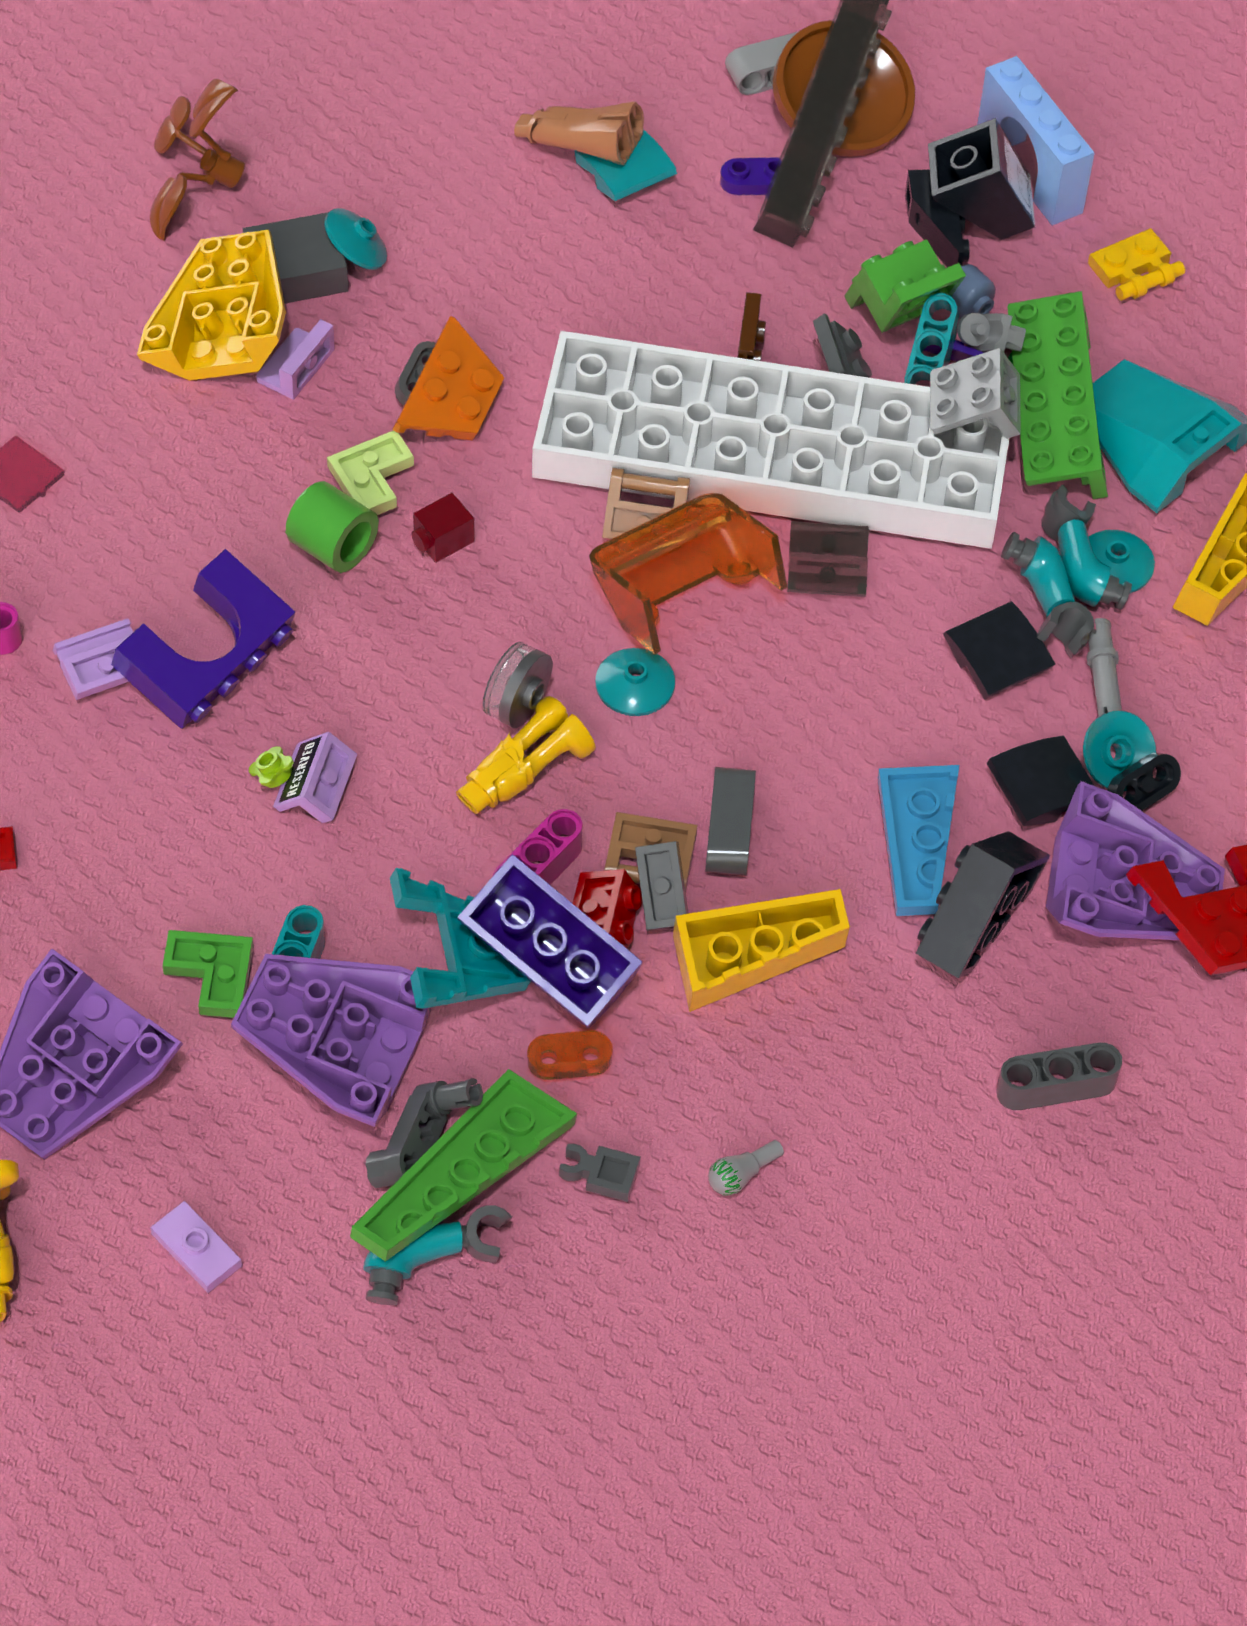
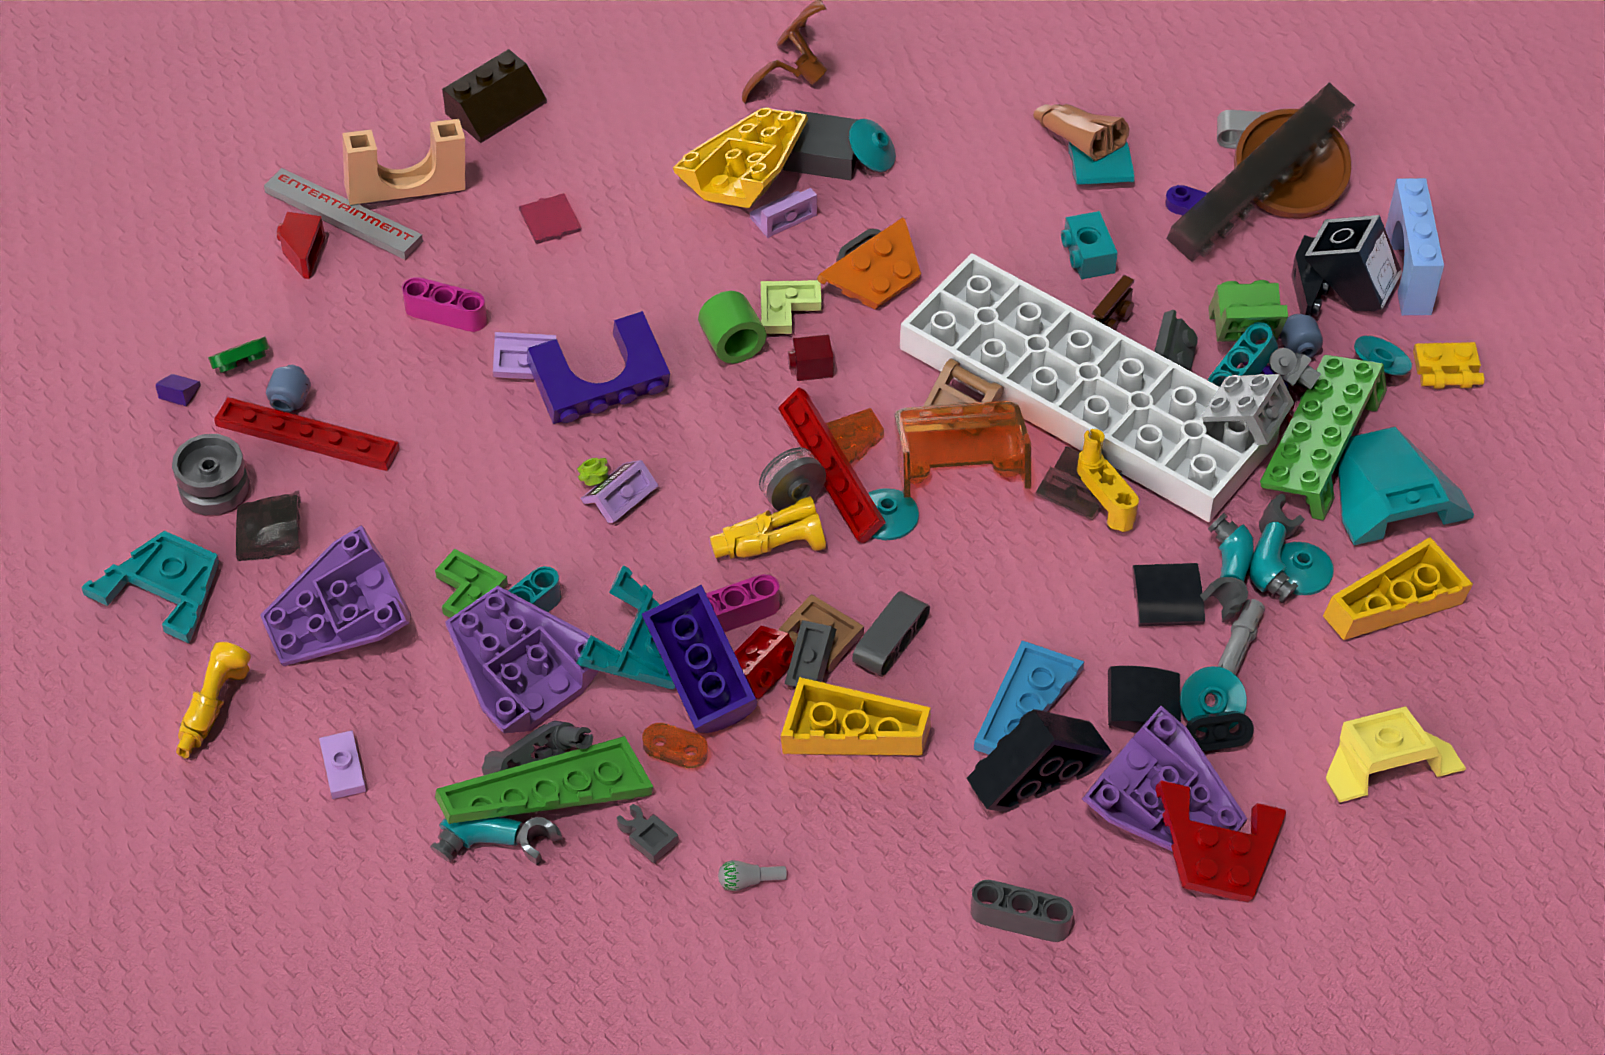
camera: 30 degrees right, 5 degrees down
(540, 609) = (857, 433): none -> clear orange wing
(572, 665) = (841, 478): none -> red tile
(675, 269) = (1089, 245): none -> teal brick
(866, 548) = (1113, 491): none -> yellow beam
(1065, 278) = (1381, 351): none -> teal dish

